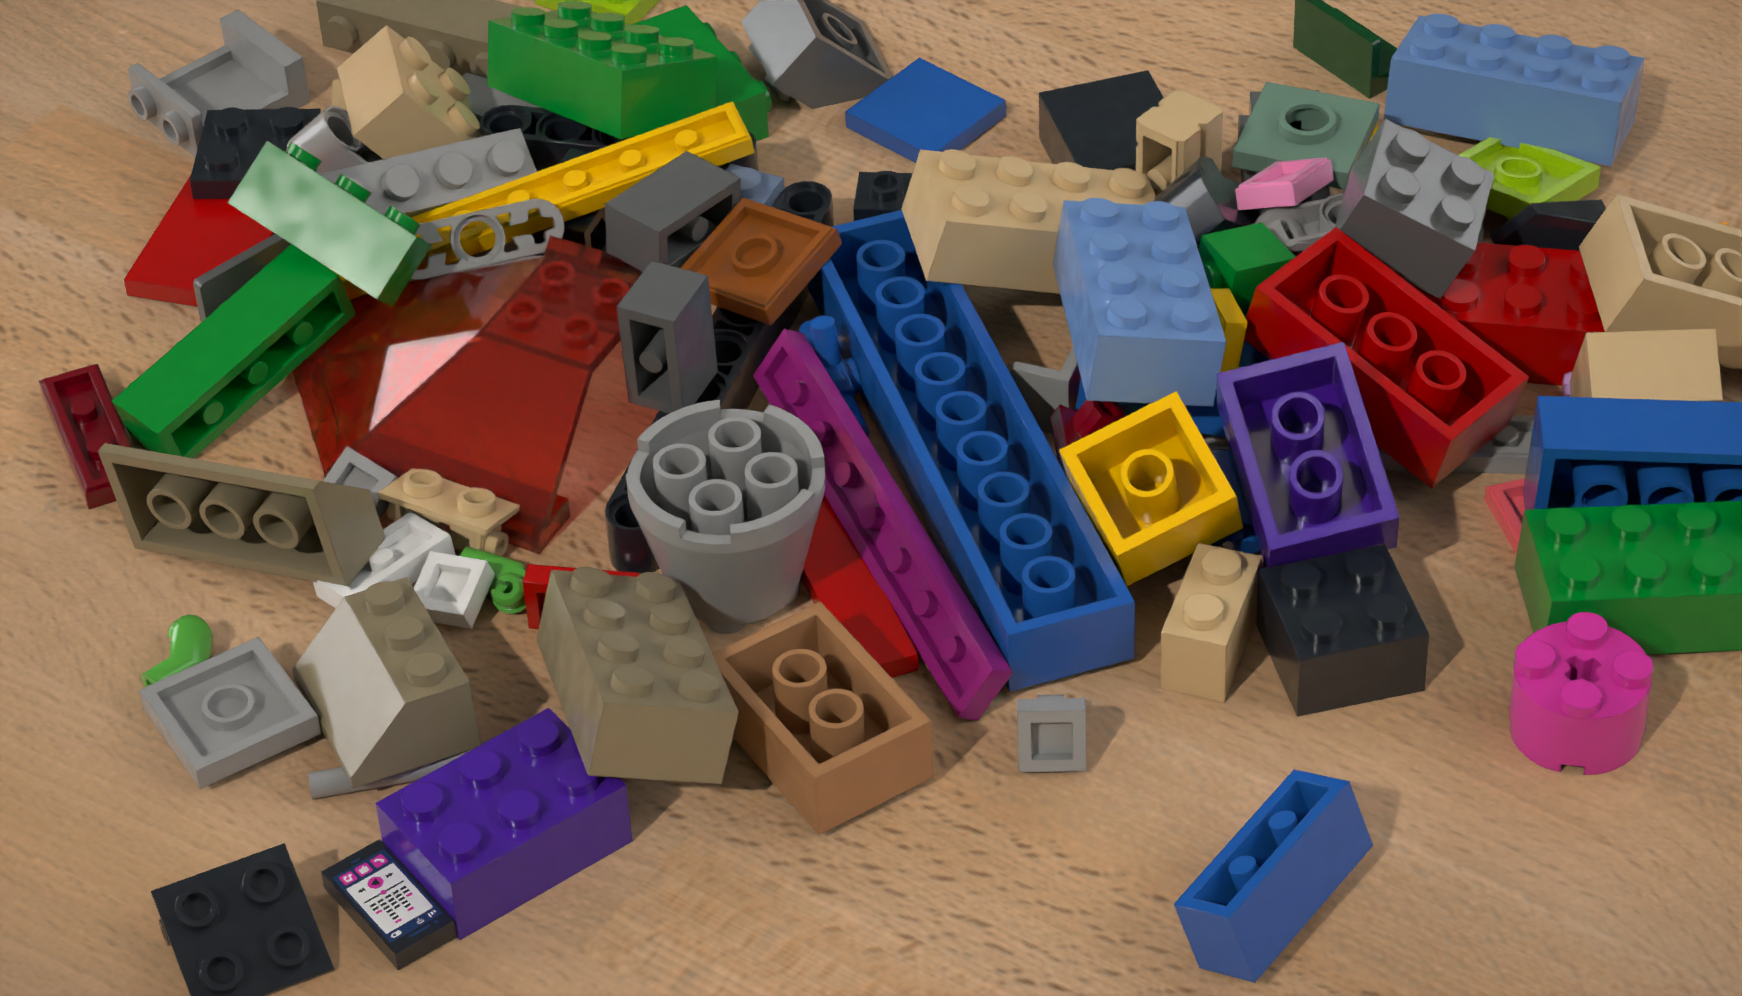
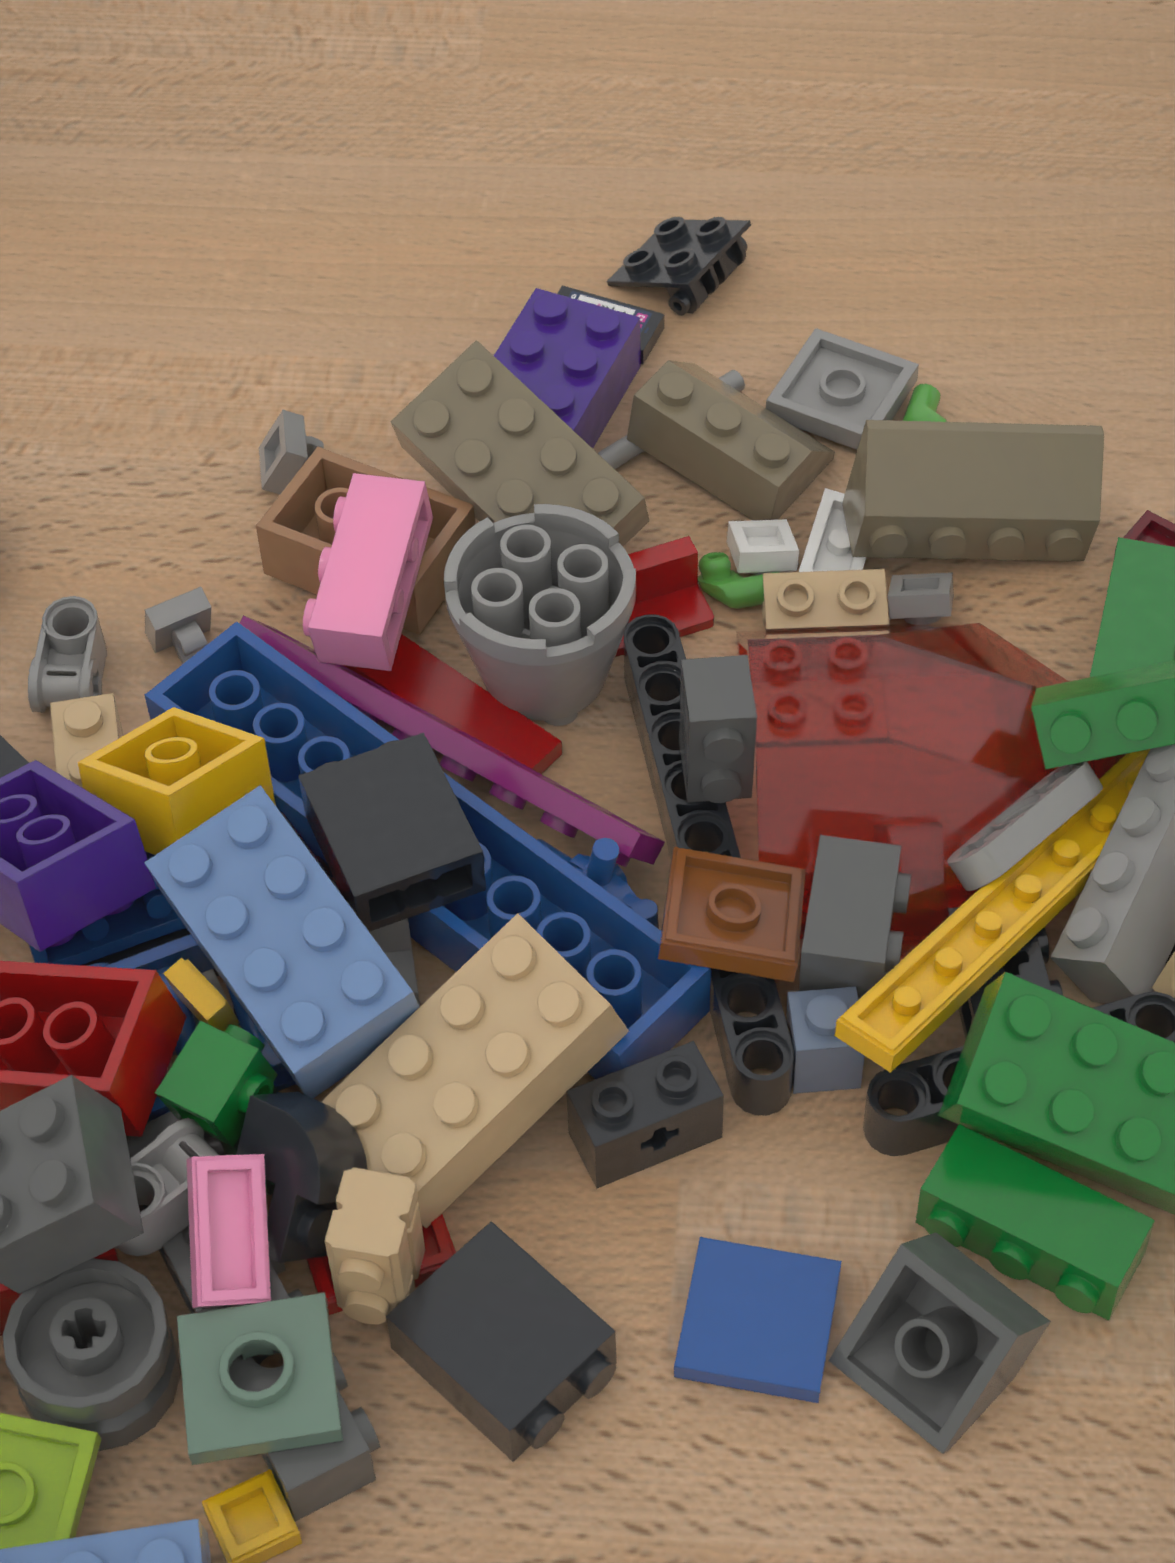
camera: 150 degrees right, 10 degrees up
(833, 871) = (285, 451): none -> light grey tile
(857, 591) = (369, 572): none -> bright pink brick
(992, 371) = (393, 832): none -> black brick
(1179, 746) = (67, 655): none -> light grey piece

